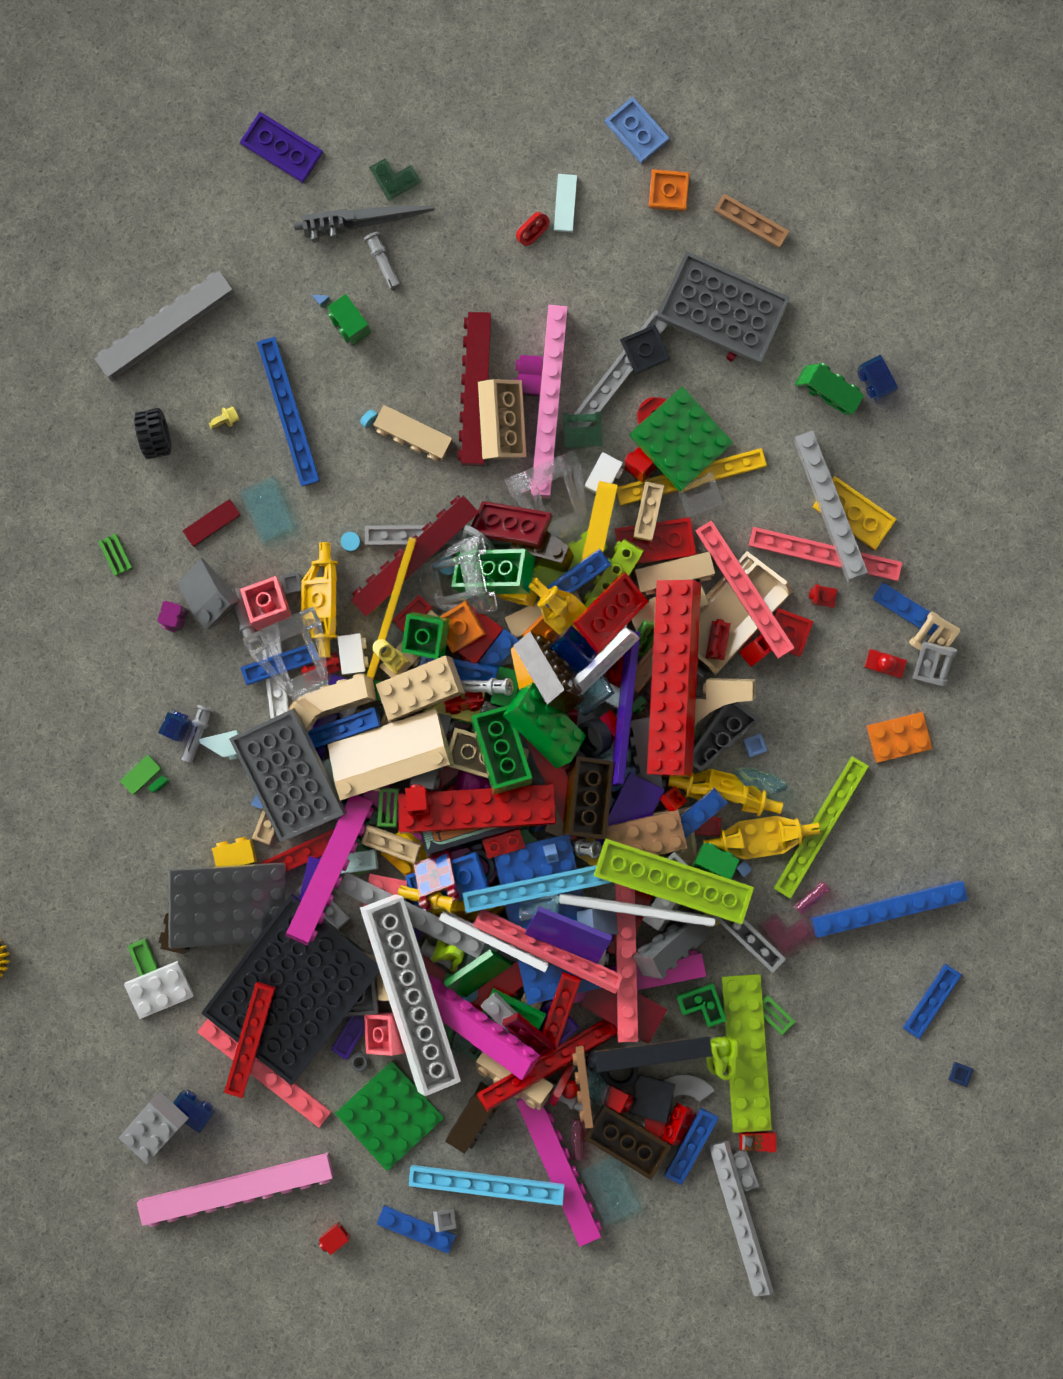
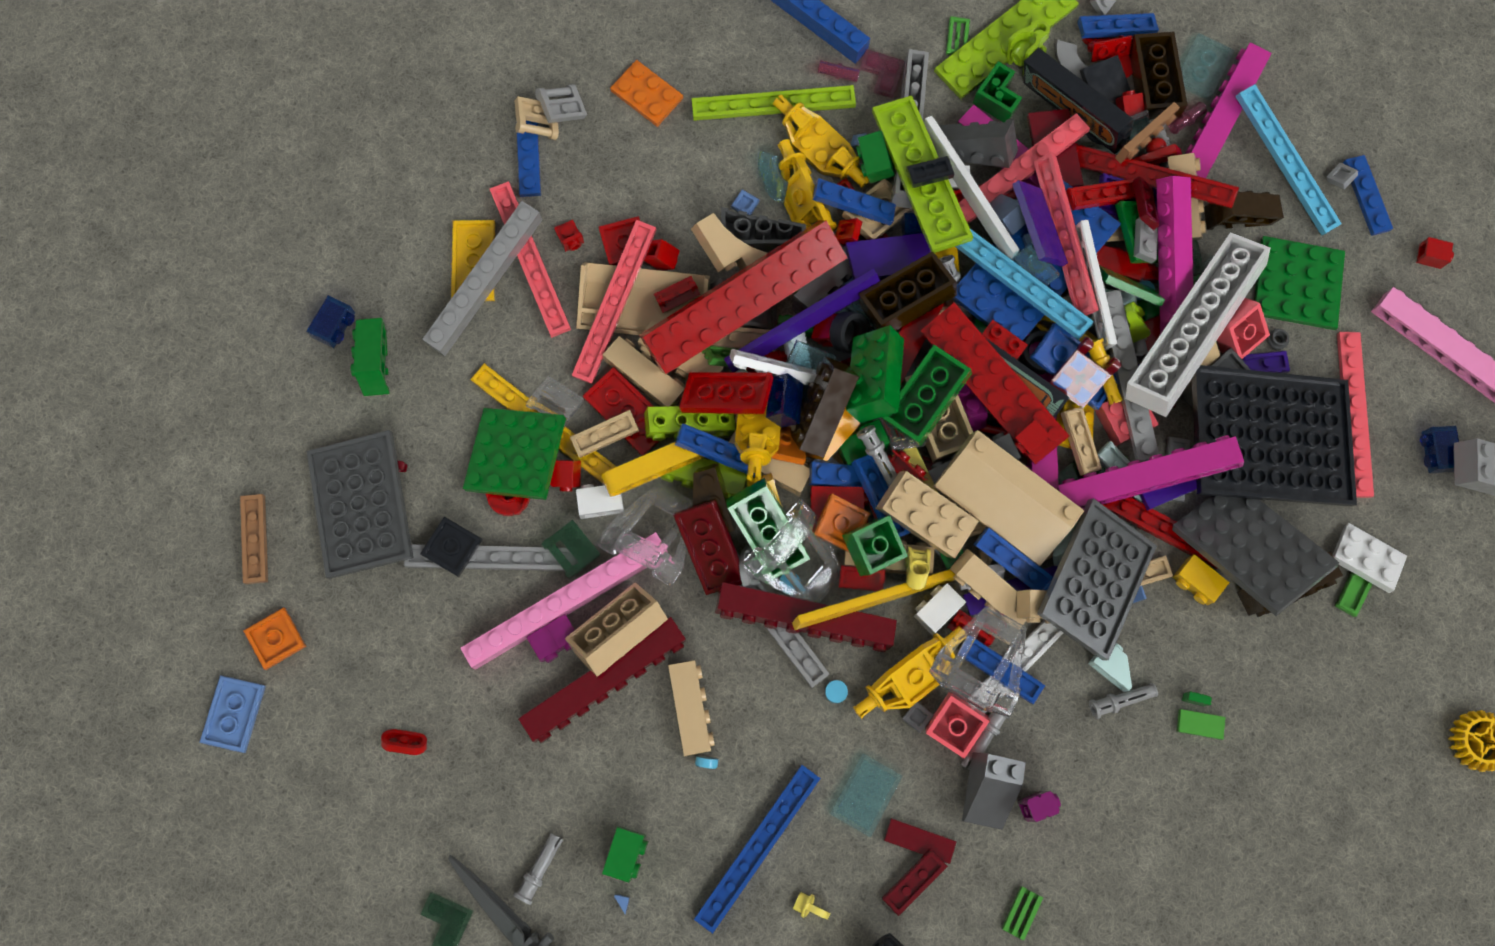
camera: 135 degrees left, 10 degrees down
(175, 726) = (1136, 722): clear blue brick -> none
(188, 498) = (914, 882): none -> dark red tile
(249, 1039) = (1345, 440): red plate -> none
(388, 806) = (1066, 459): bright green tile -> none
(550, 853) = (979, 294): medium blue piece -> none
(565, 203) = (355, 730): light aqua tile -> none
(652, 834) = (895, 224): medium nougat plate -> none
(667, 884) = (930, 172): none -> black plate
(885, 663) = (590, 145): red tile -> none

